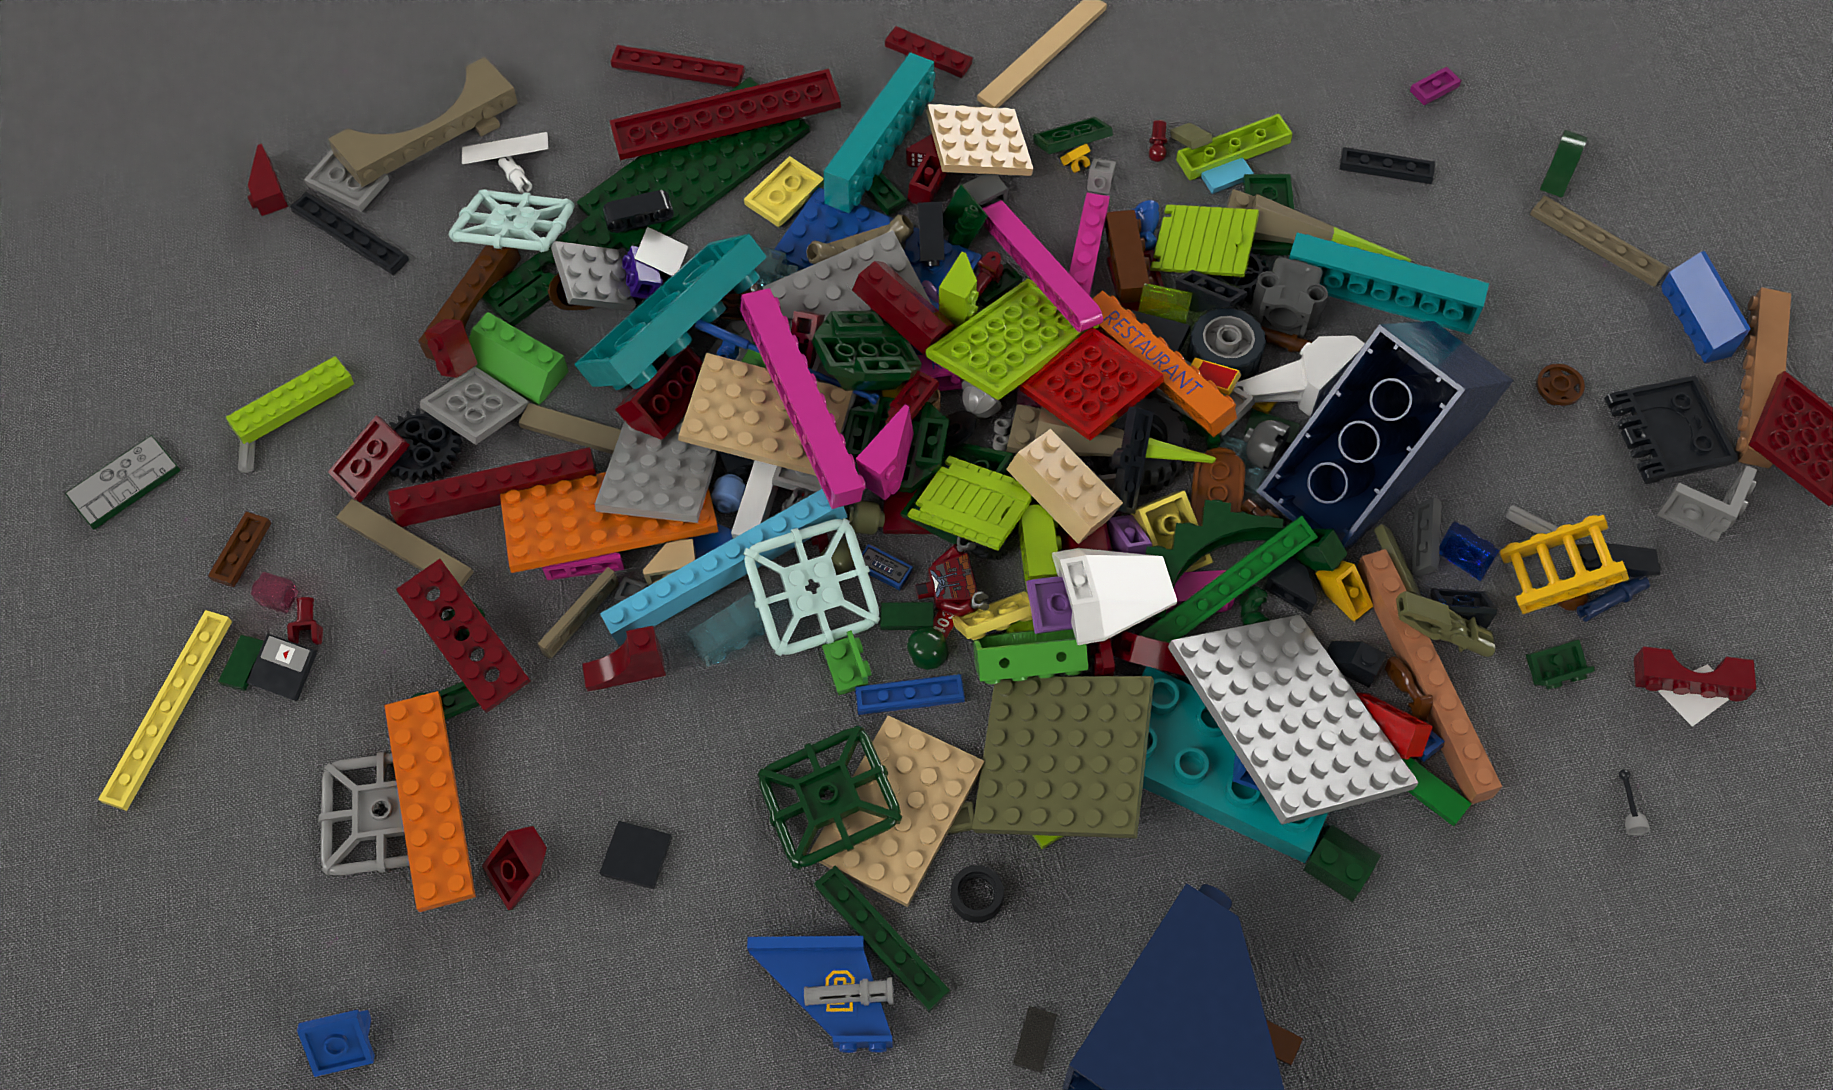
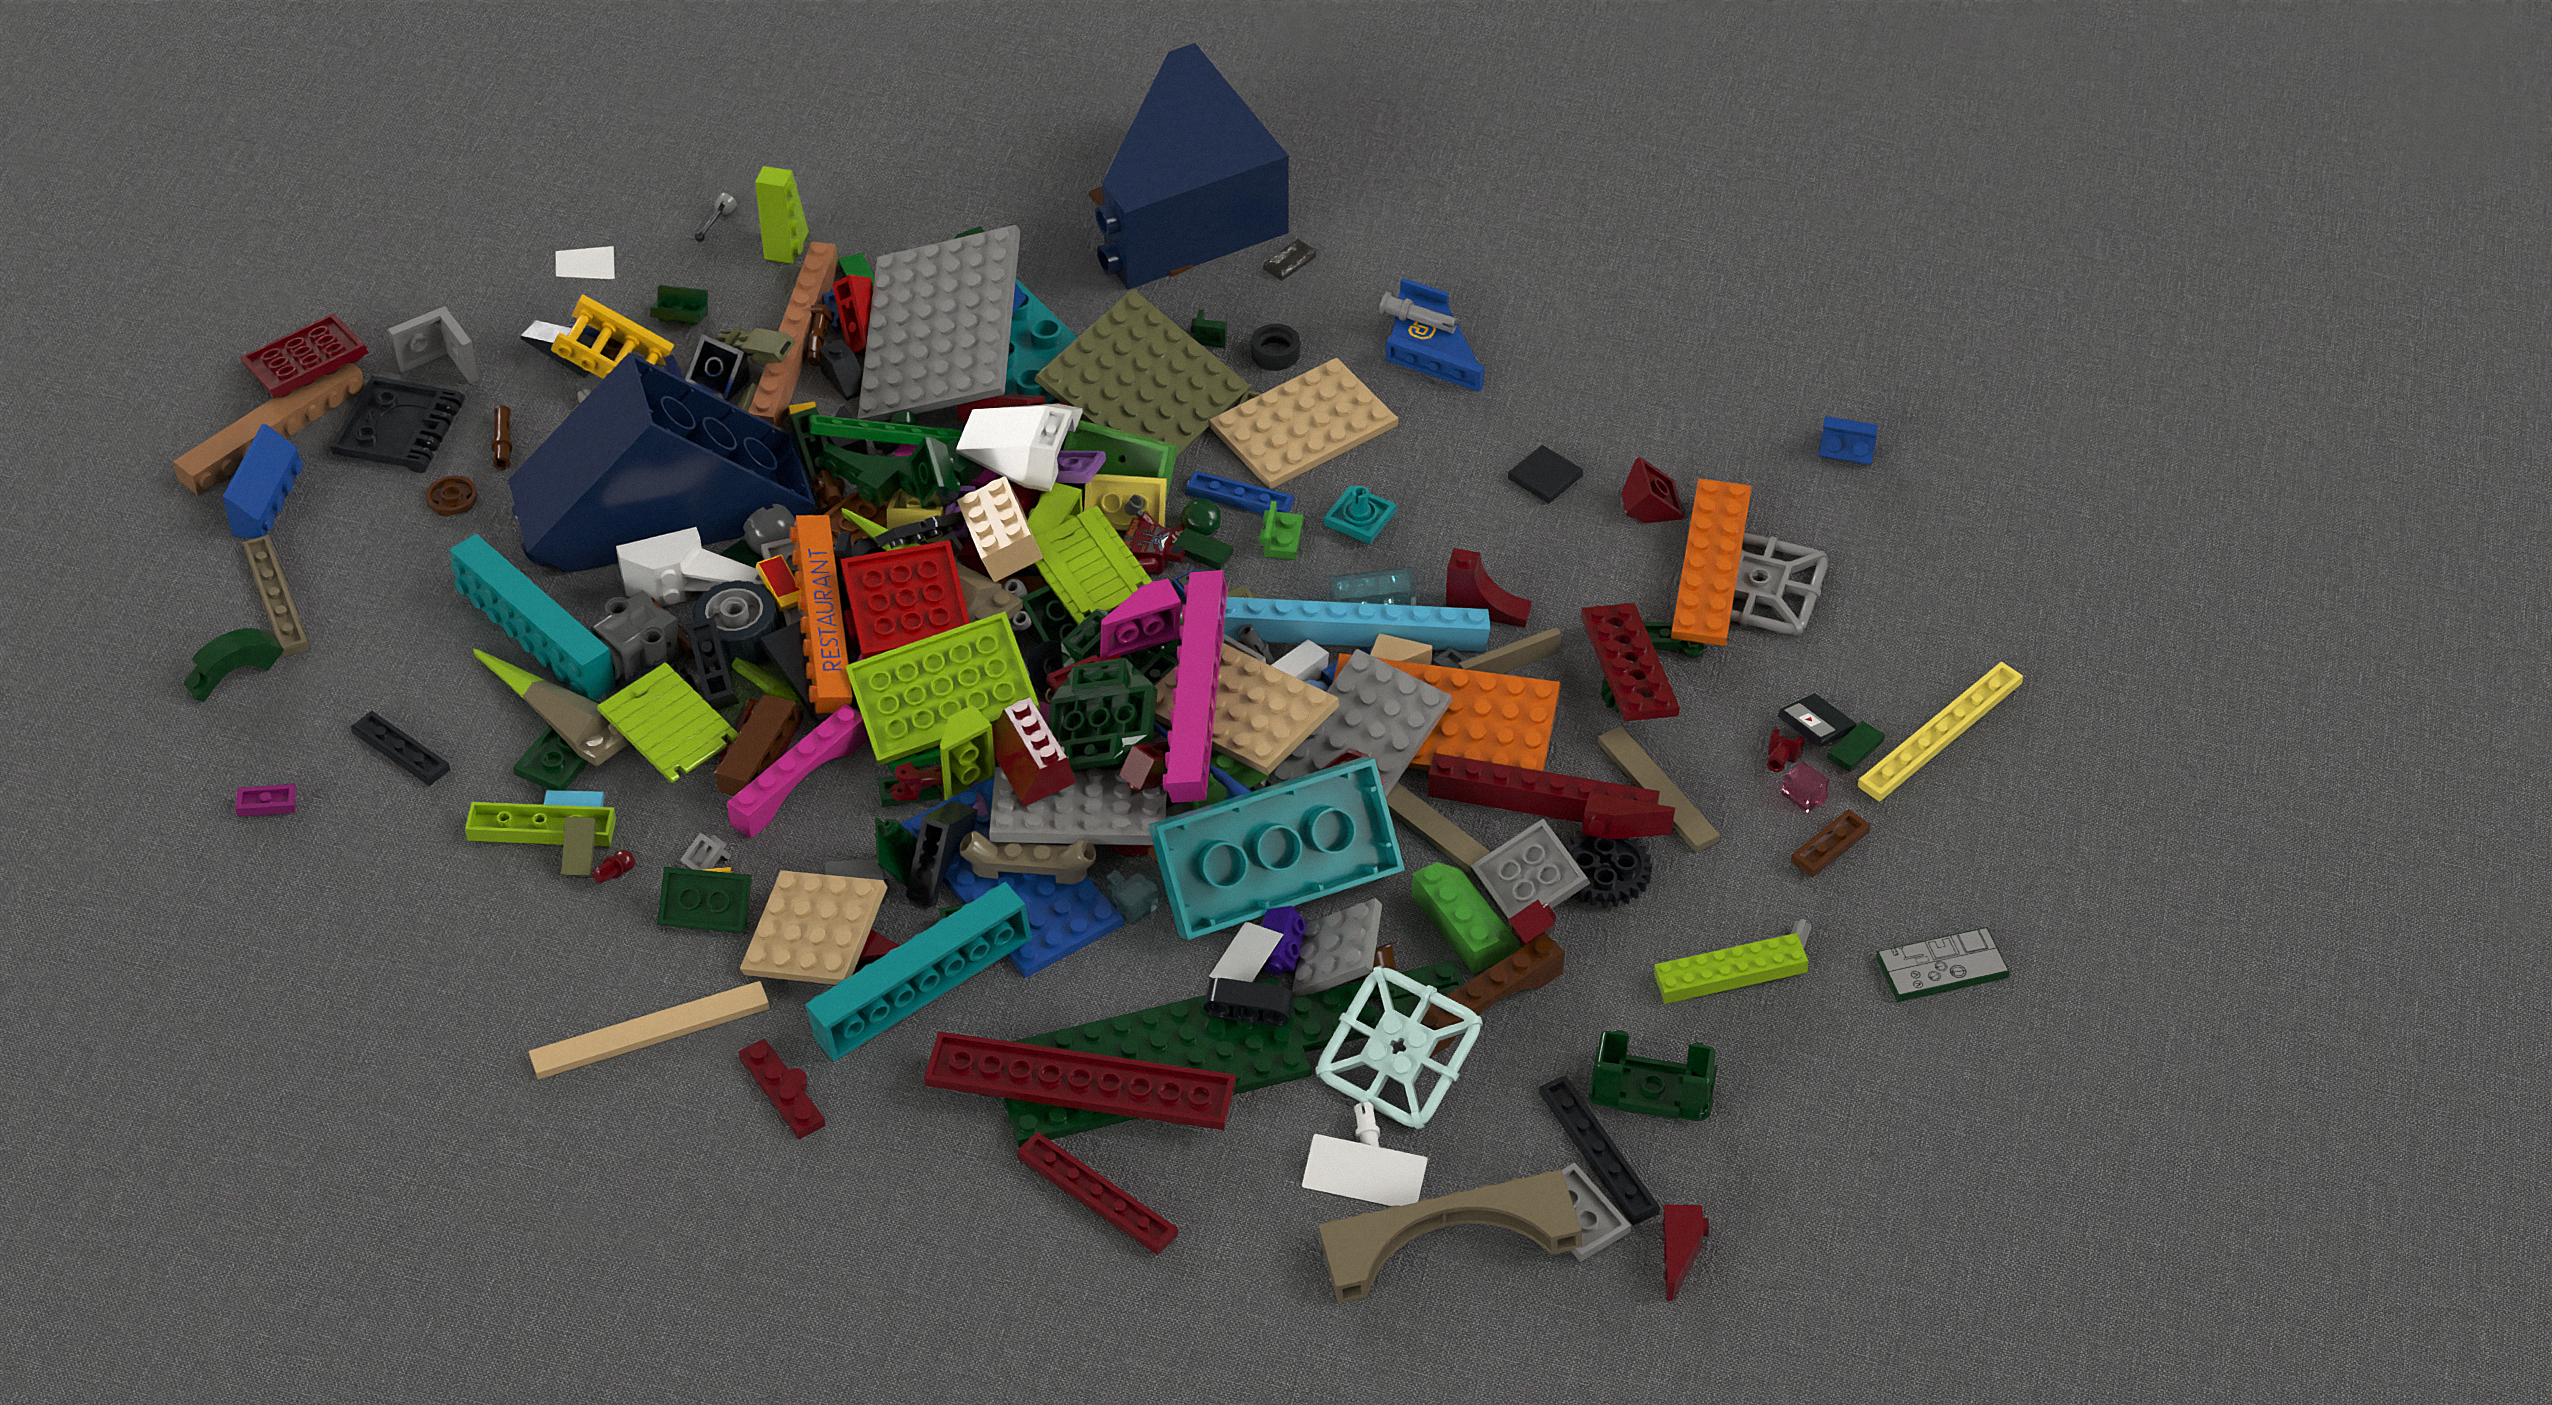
camera: 155 degrees left, 15 degrees down
(320, 285) = (1653, 1084): none -> dark green container
(368, 458) = (1664, 866): dark red tile -> none
(418, 468) = (1625, 818): none -> dark red slope
(784, 191) = (1065, 980): light yellow plate -> none
(785, 715) = (1360, 514): none -> teal plate
(796, 578) = (1285, 579): light aqua plate -> none
(843, 803) = (1345, 446): dark green plate -> none
(882, 938) = (1371, 349): dark green plate -> none
(926, 180) = (904, 911): dark red brick -> none
(1042, 267) = (859, 751): dark pink beam -> none
(1050, 878) = (1208, 331): none -> dark green bracket
(1149, 216) = (699, 784): blue animal -> none
(1159, 518) = (934, 474): none -> dark green slope
(1180, 413) = (842, 548): none -> black tile
(1551, 789) = (780, 215): none -> lime wedge
(1574, 453) = (501, 444): none -> reddish brown pin
(1659, 670) = (557, 251): dark red arch -> none

